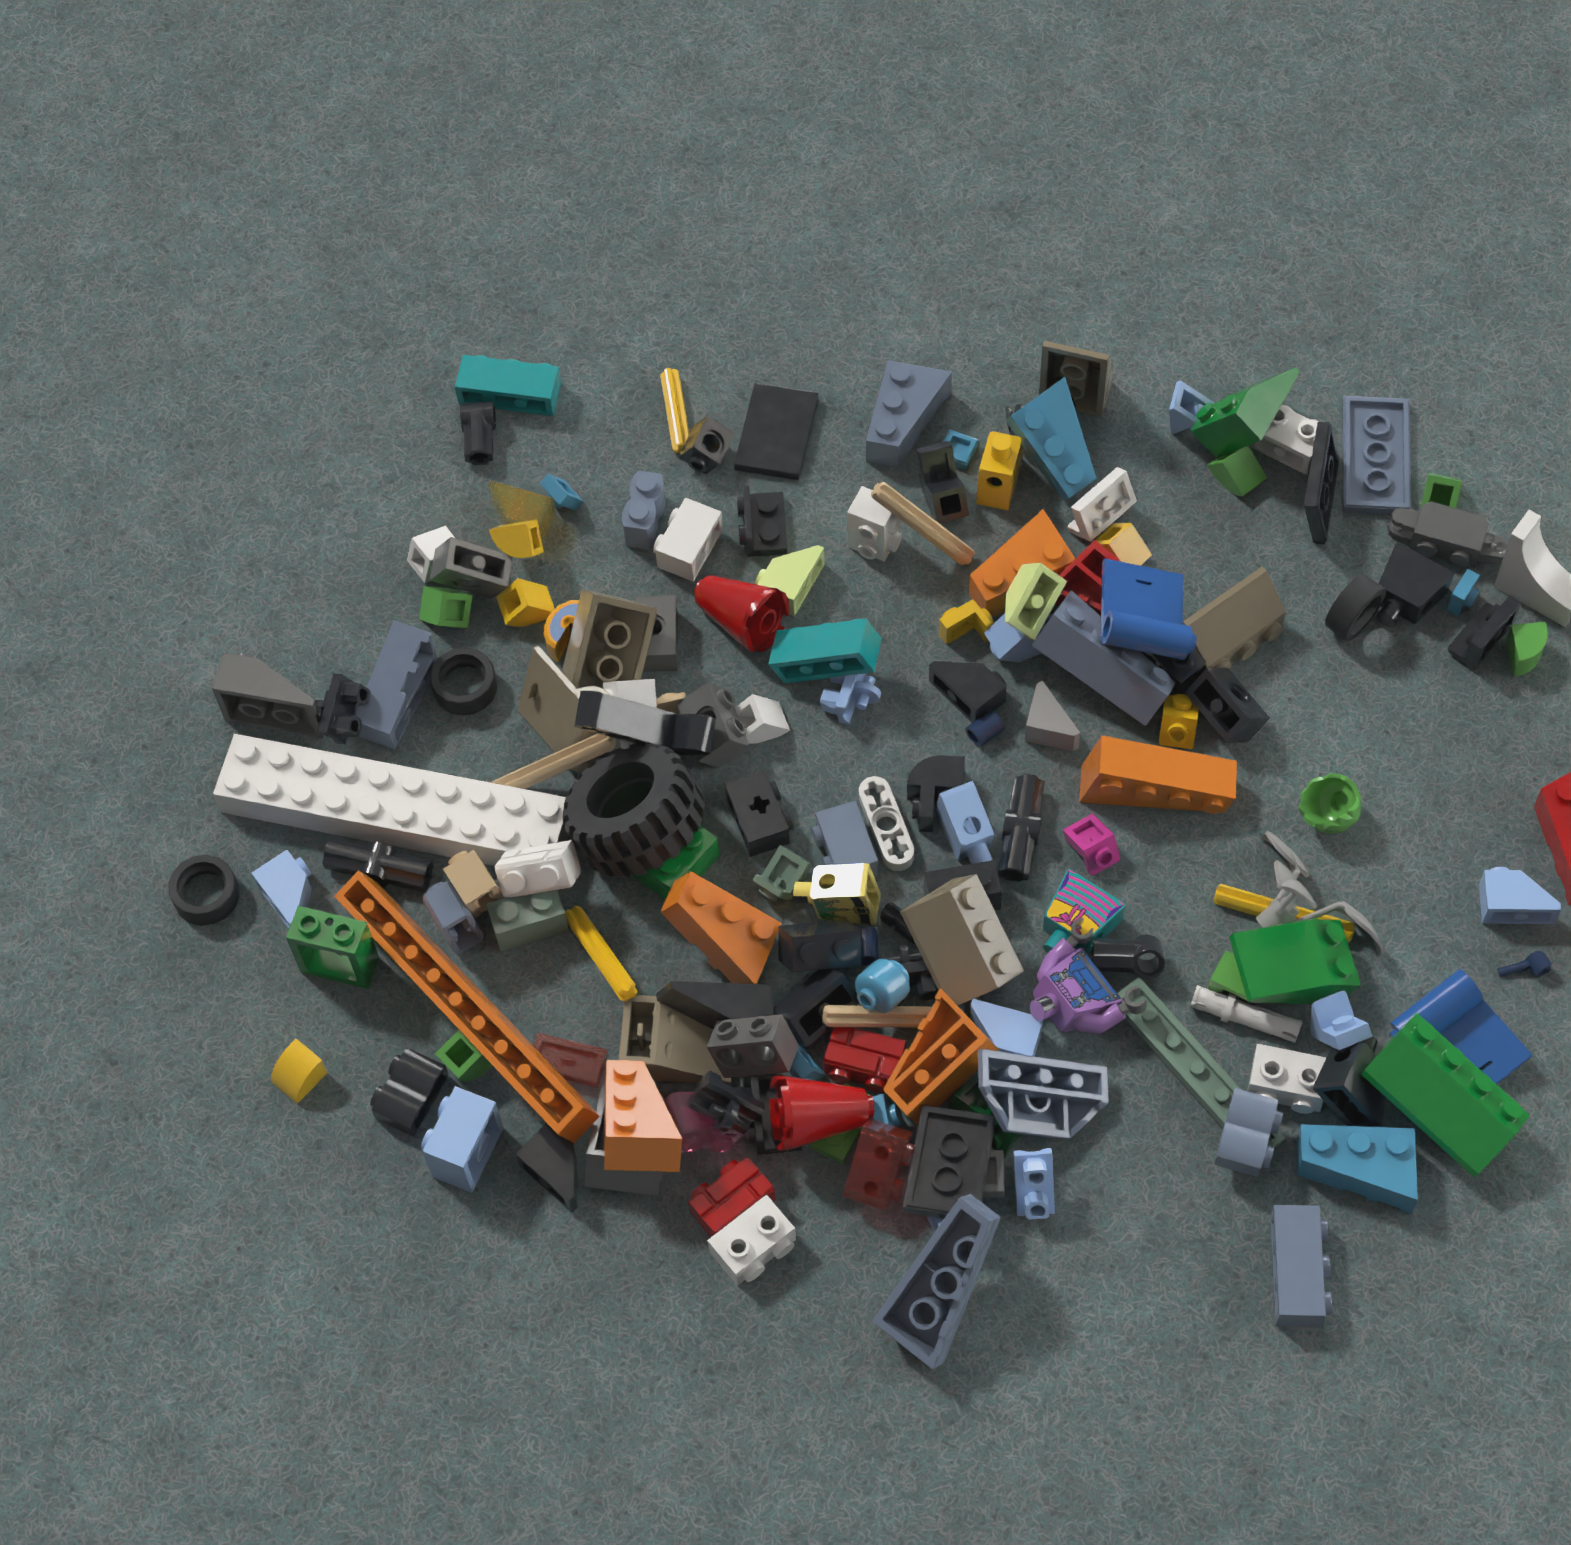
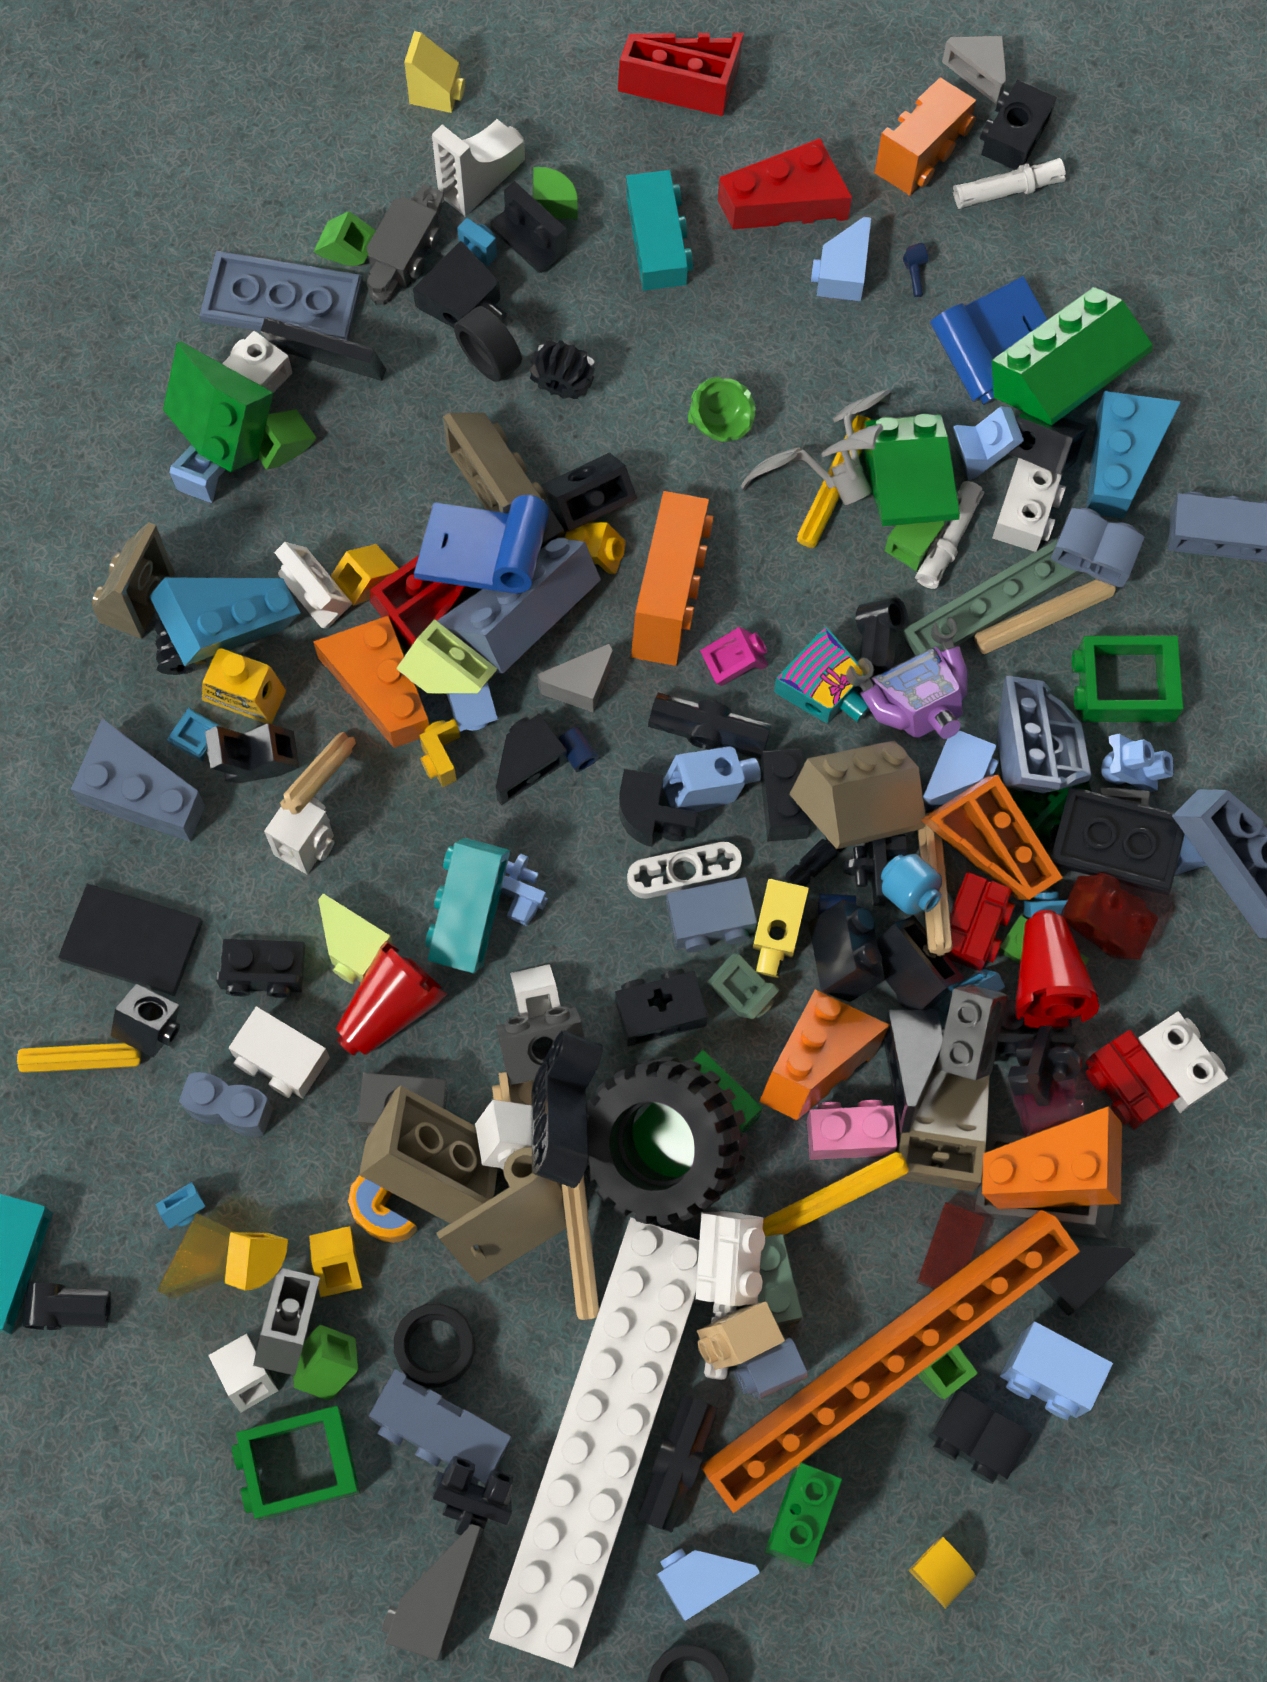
camera: 90 degrees left, 10 degrees up
(373, 625) = (340, 1453): none -> green window
(660, 958) = (851, 1131): none -> bright pink brick
(1129, 1213) = (1168, 675): none -> green window
(1177, 1101) = (1042, 615): none -> tan axle
(1343, 670) = (562, 369): none -> black gear
(1510, 736) = (658, 230): none -> teal brick

